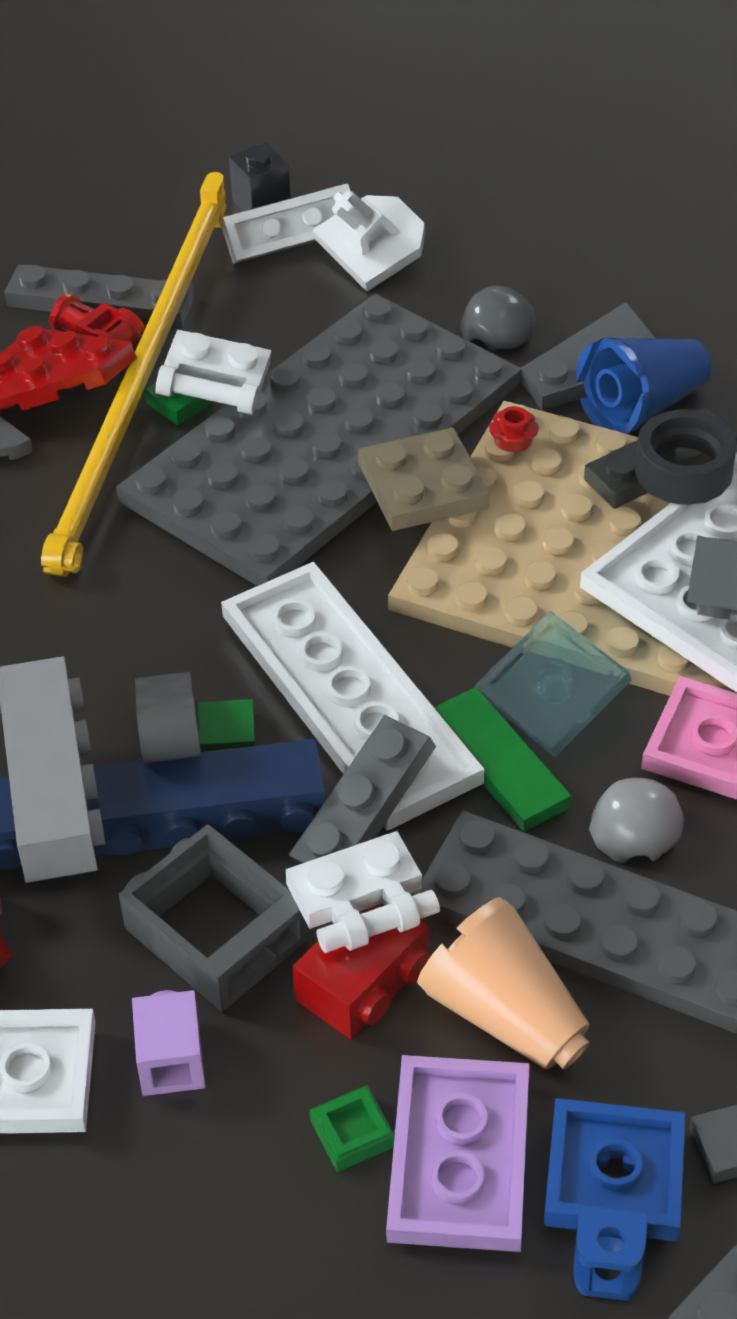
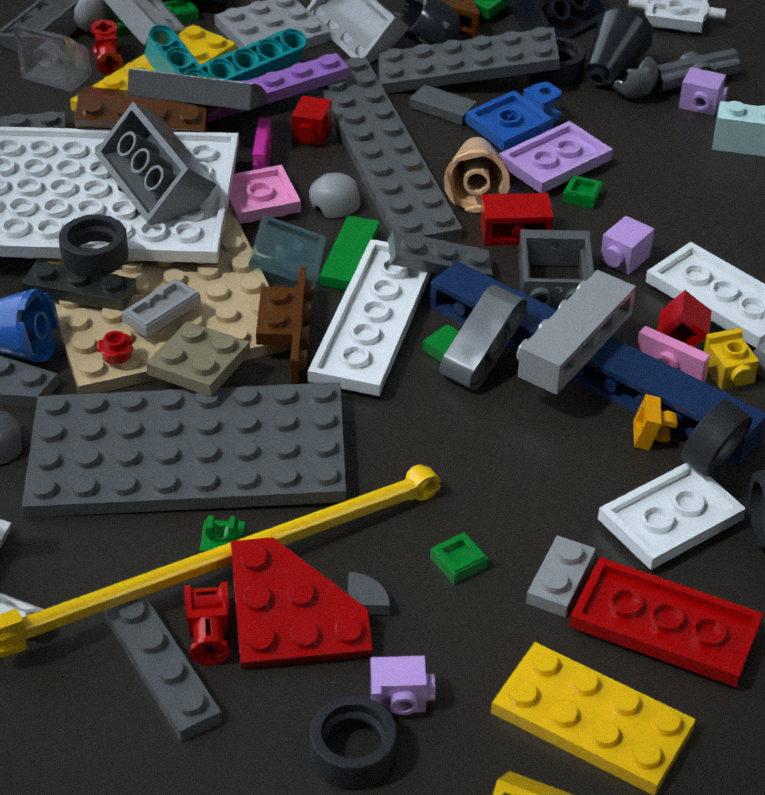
camera: 135 degrees left, 5 degrees down
(214, 370) = (200, 502): white plate -> none
(356, 880) = (493, 217): white plate -> none
(414, 594) = (283, 318): none -> reddish brown bracket
(538, 489) = (161, 307): none -> light grey plate

